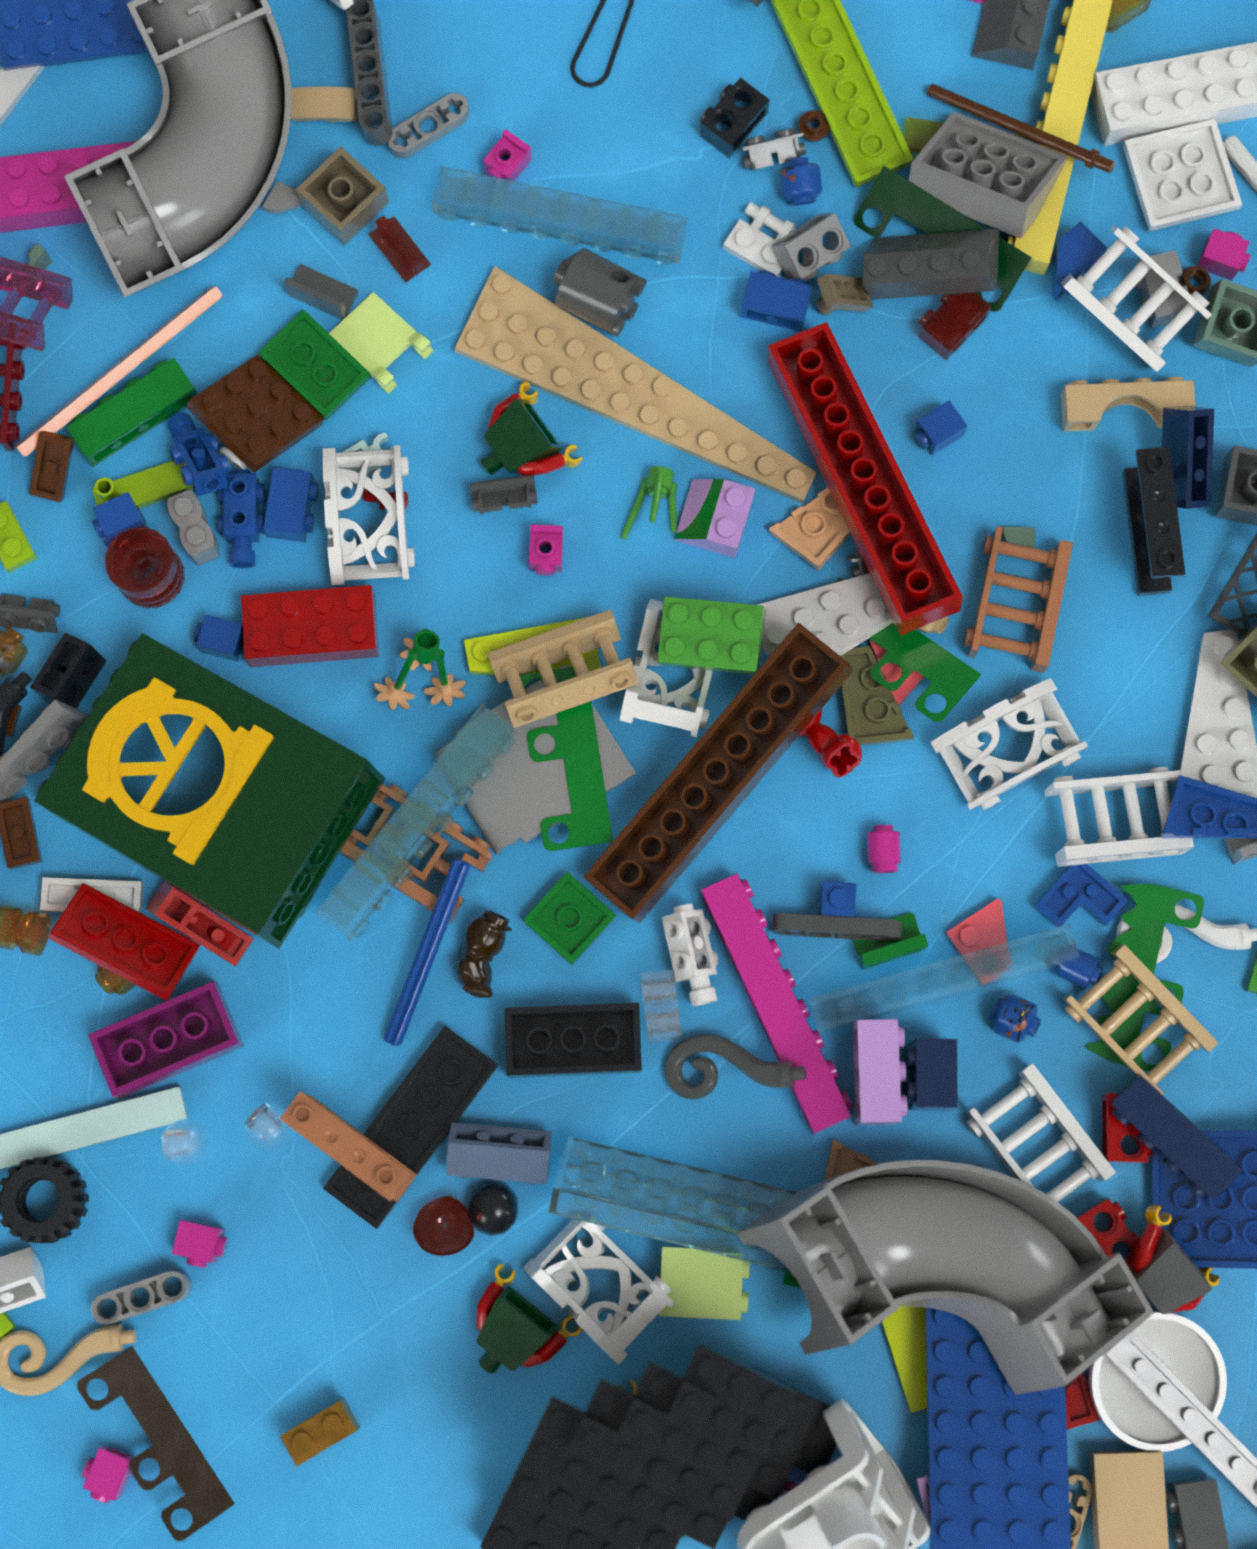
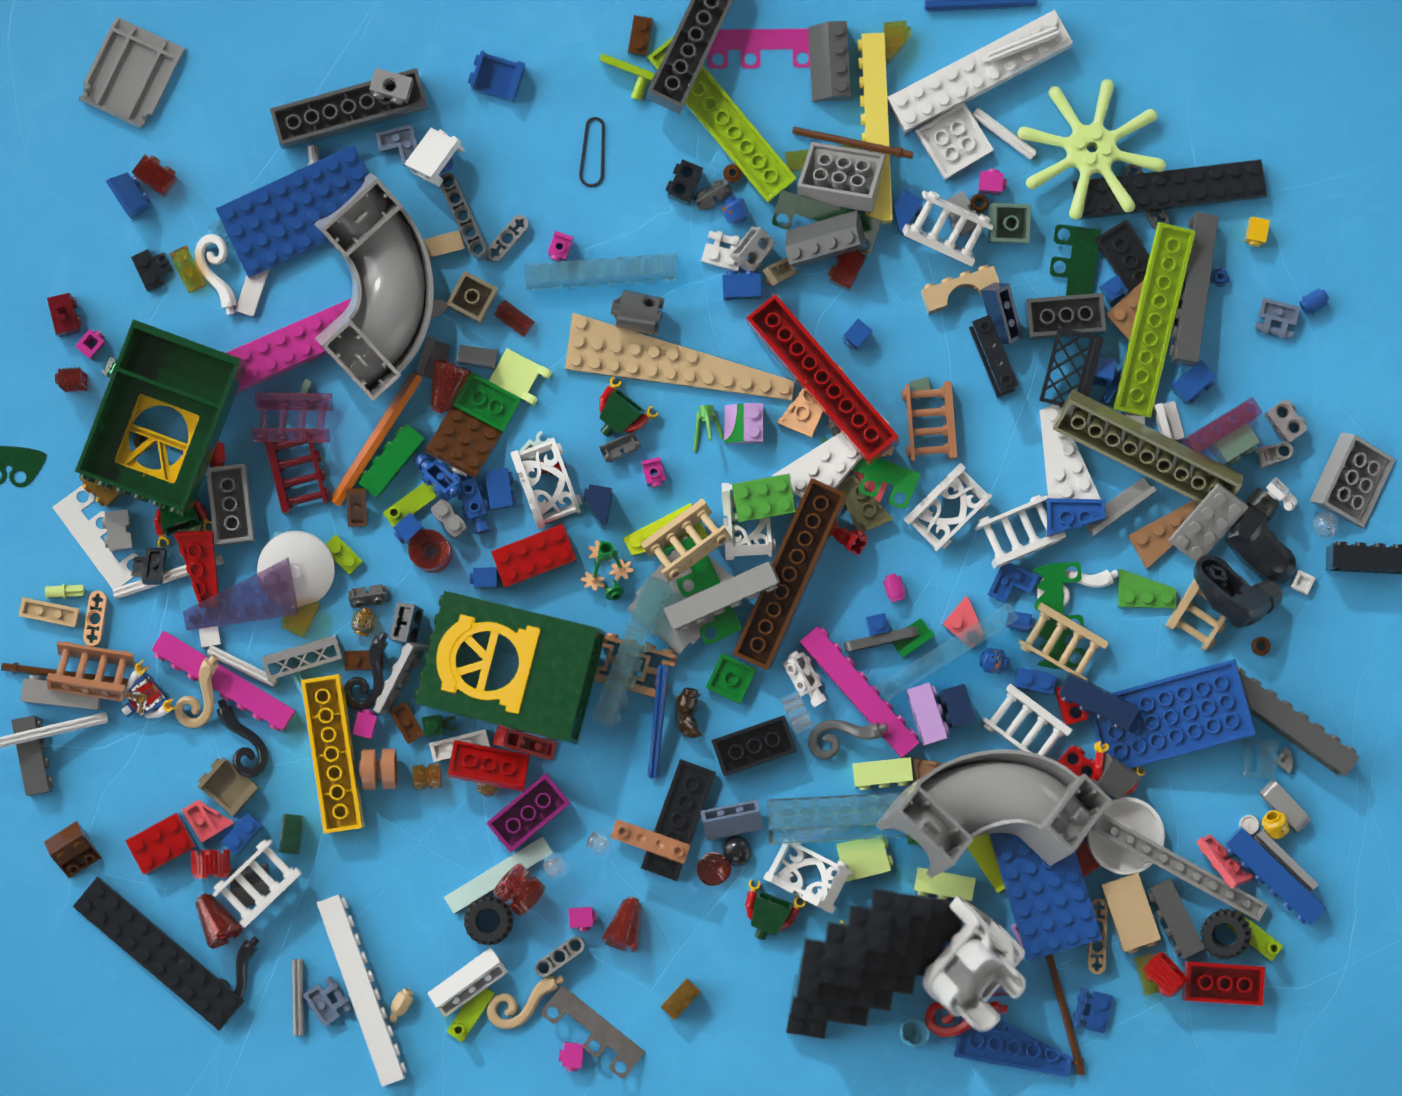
camera: 20 degrees left, 5 degrees up
(63, 851) = (435, 725): none -> dark green brick
(110, 1167) = (519, 889): none -> clear red wheel
(249, 274) = (431, 351): none -> dark grey panel
(257, 317) = (446, 384): none -> clear red cone
(266, 1278) = (625, 926): none -> clear red cone
(422, 722) = (615, 592): none -> green plate
(443, 569) = (598, 502): none -> dark blue slope
(594, 774) = (722, 595): none -> light grey brick
(775, 1150) = (882, 773): none -> yellowish green brick
(824, 1373) = (944, 885): none -> yellowish green brick
(1074, 1072) = (1035, 681): none -> blue brick

